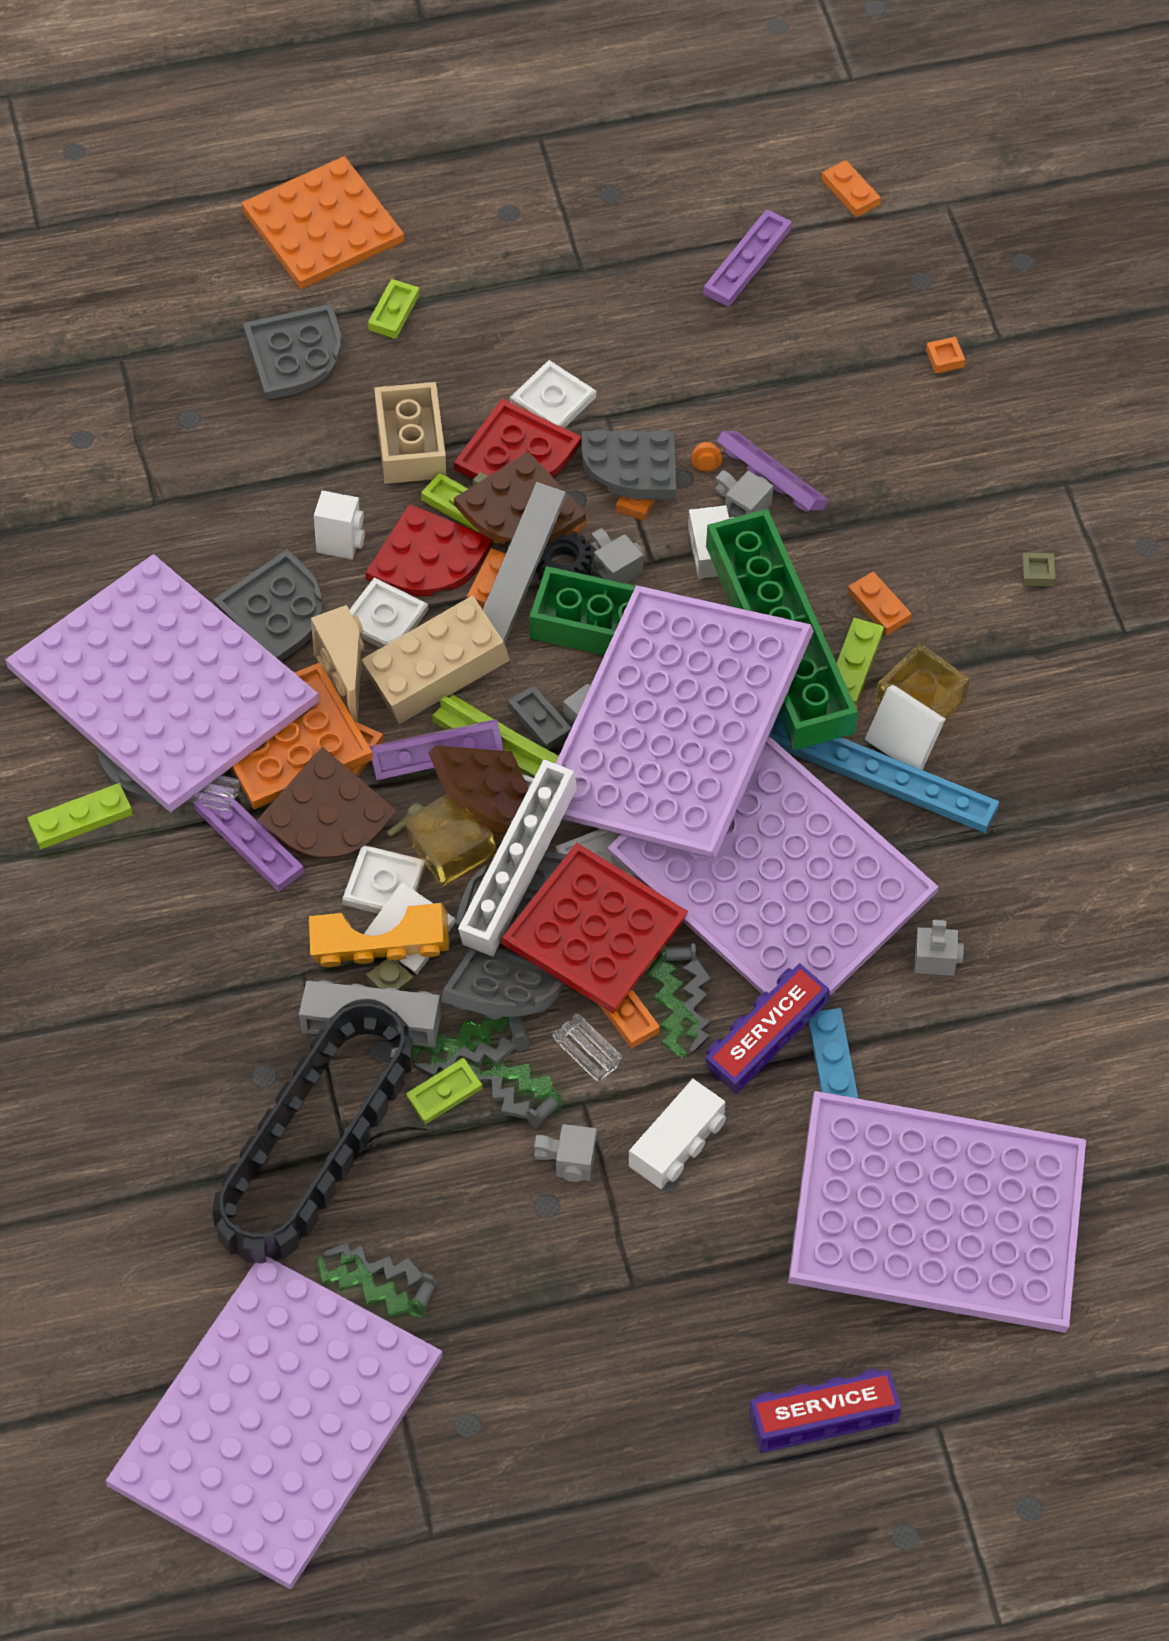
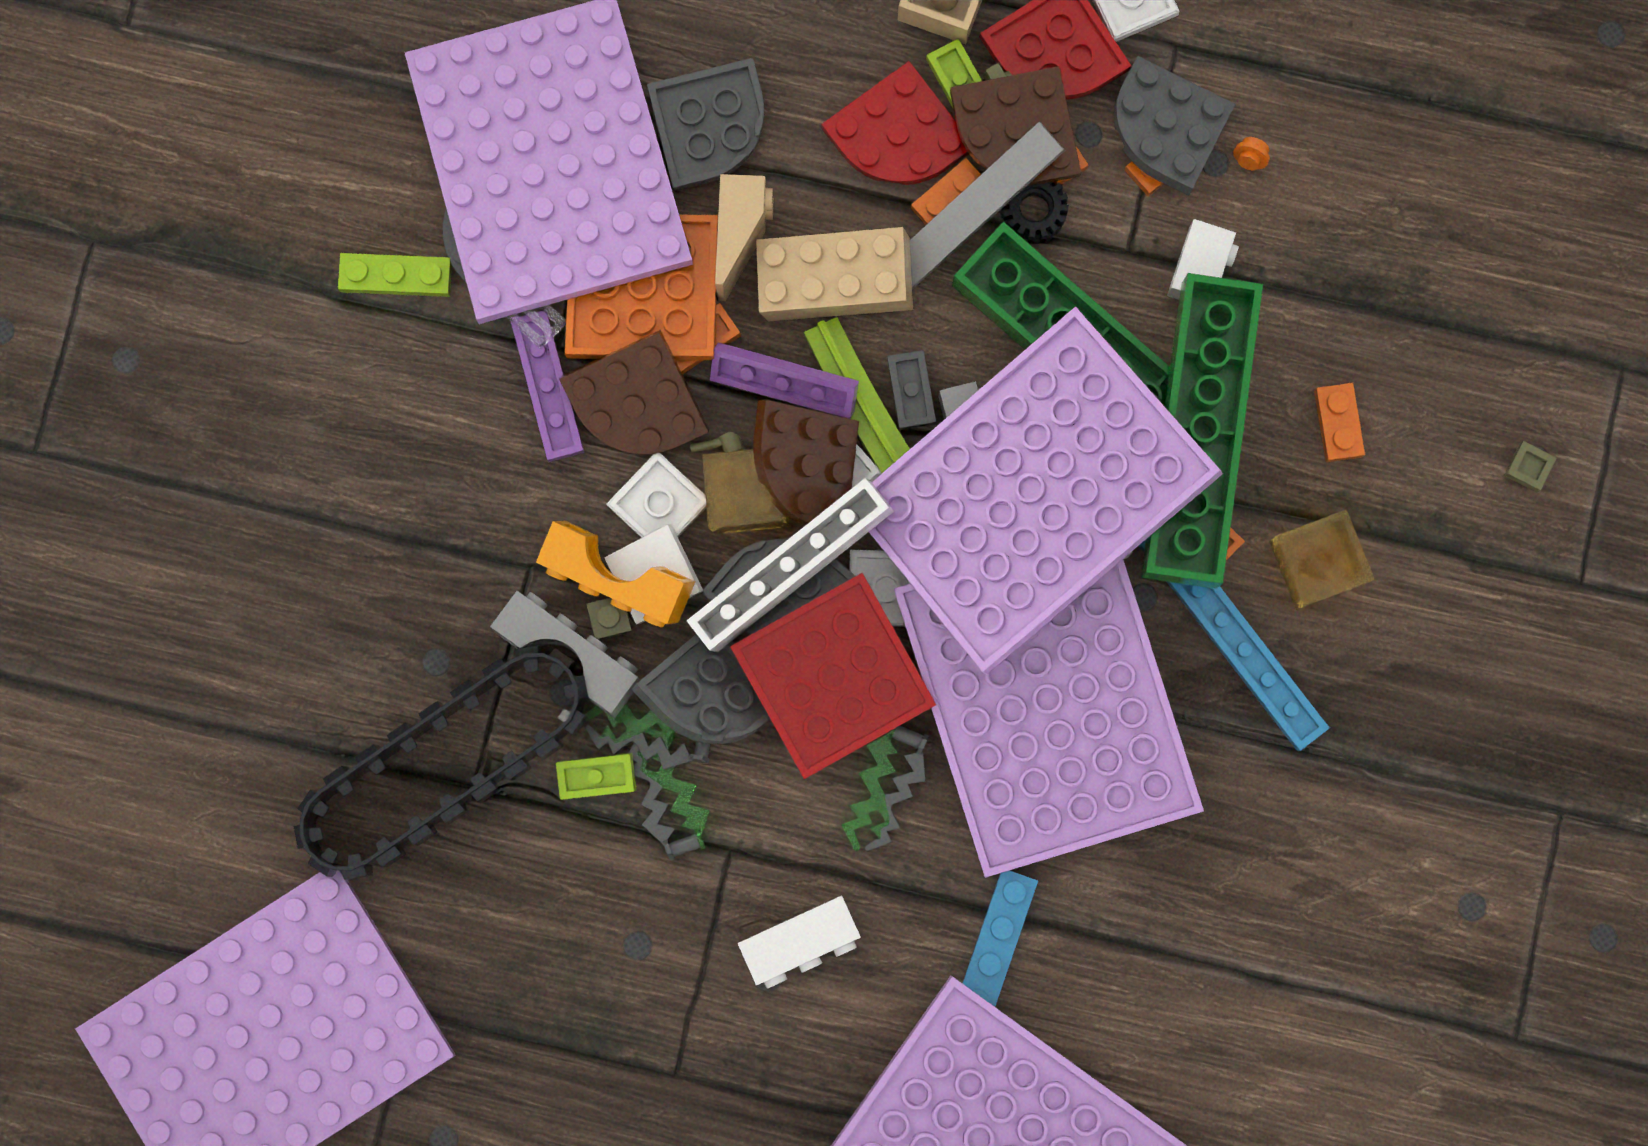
camera: 30 degrees right, 25 degrees up
(338, 525) = (816, 58): white brick -> none
(364, 1274) = (422, 933): piece -> none
(387, 613) = (816, 184): white tile -> none
(572, 1153) = (686, 909): light grey brick -> none
(580, 1023) = (756, 763): clear tile -> none
(616, 559) = (1089, 238): light grey brick -> none
(633, 1021) = (824, 792): orange plate -> none
(747, 495) = (1266, 226): light grey brick -> none
(764, 465) = (1313, 205): medium lavender plate -> none
(767, 1027) = (947, 875): brick -> none
(859, 654) = (1275, 480): lime plate -> none
(904, 728) = (1276, 599): white tile -> none
(937, 950) = (1170, 868): light grey brick -> none
(945, 355) = (1581, 147): orange plate -> none

